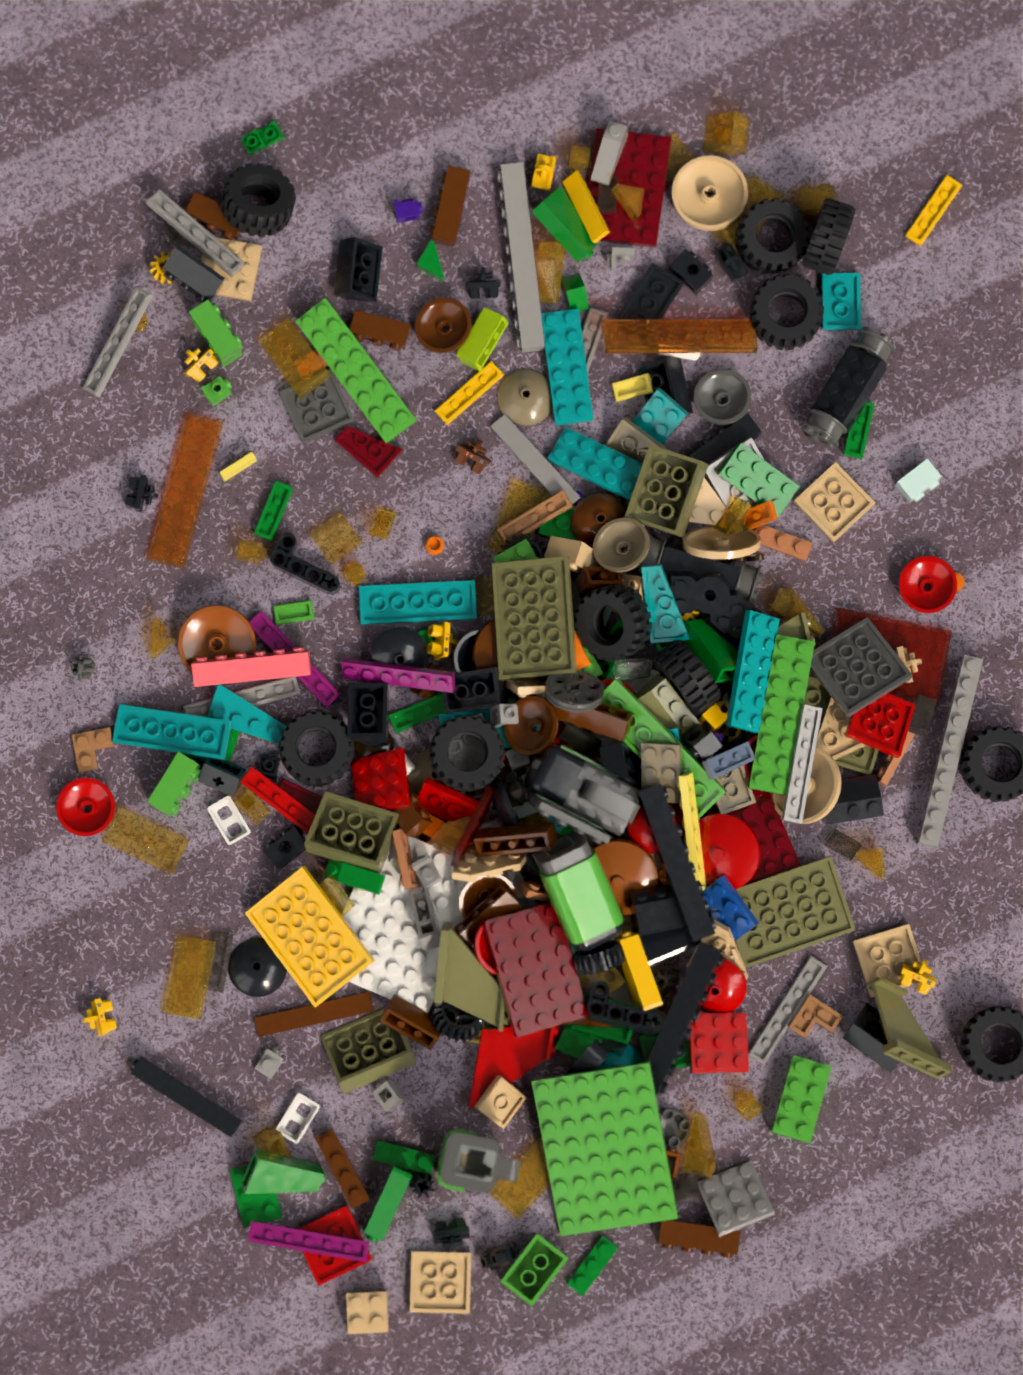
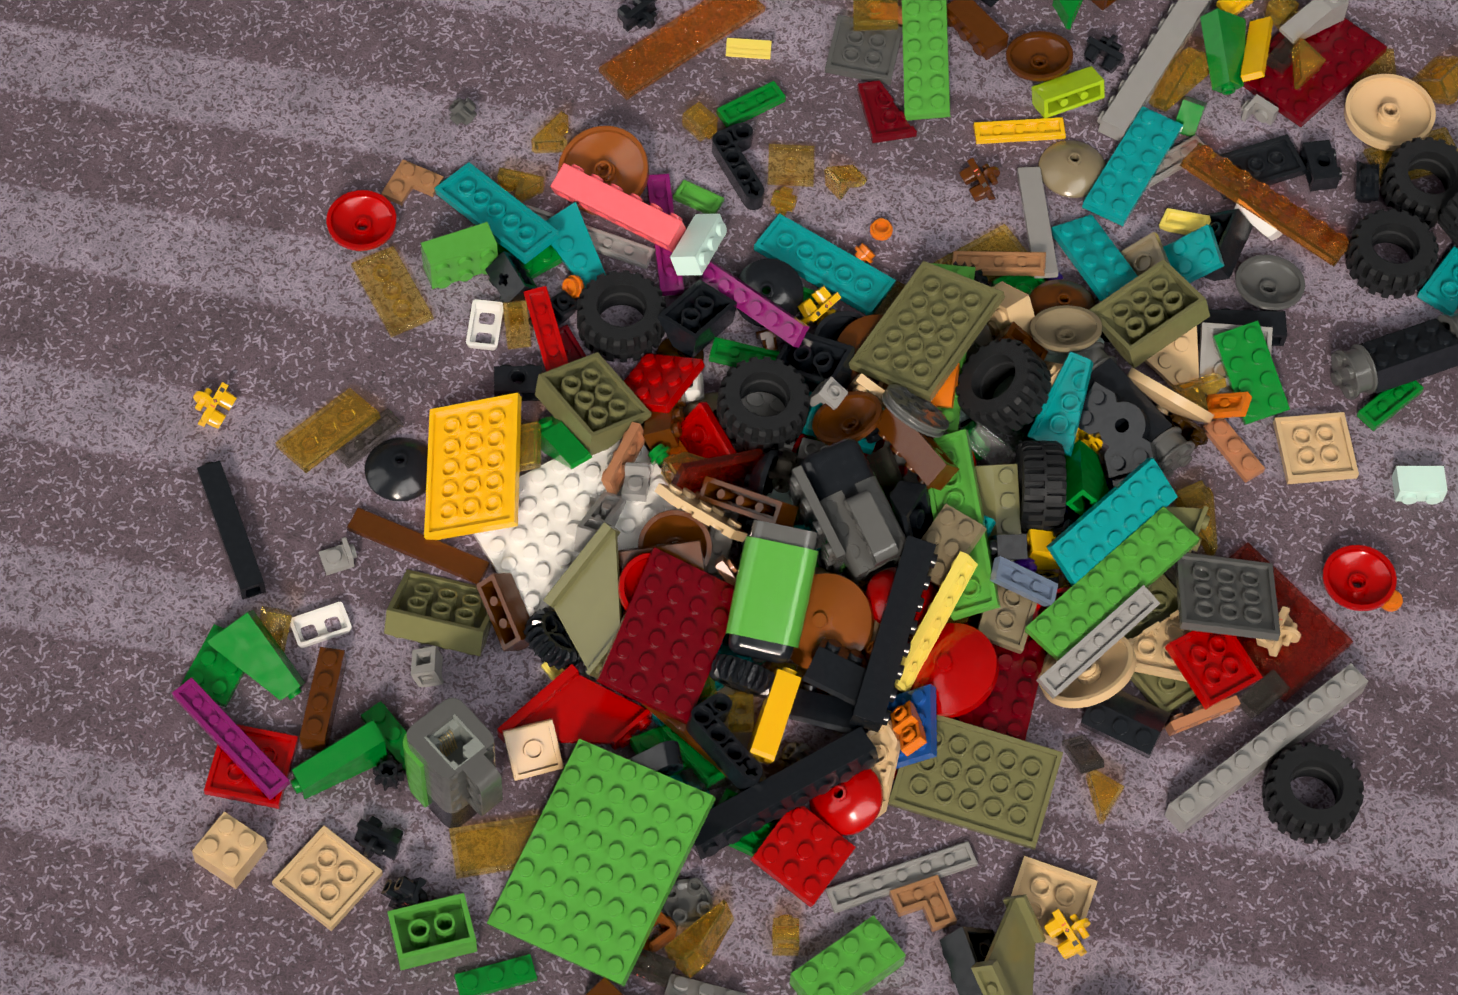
camera: 35 degrees right, 20 degrees down
(172, 692) = (525, 184): none -> clear yellow slope
(264, 747) = (573, 285): none -> orange plate
(326, 654) = (698, 244): none -> light aqua brick
(425, 838) = (658, 454): none -> green plate
(438, 574) = (864, 253): none -> orange plate
(727, 915) = (909, 727): none -> orange slope

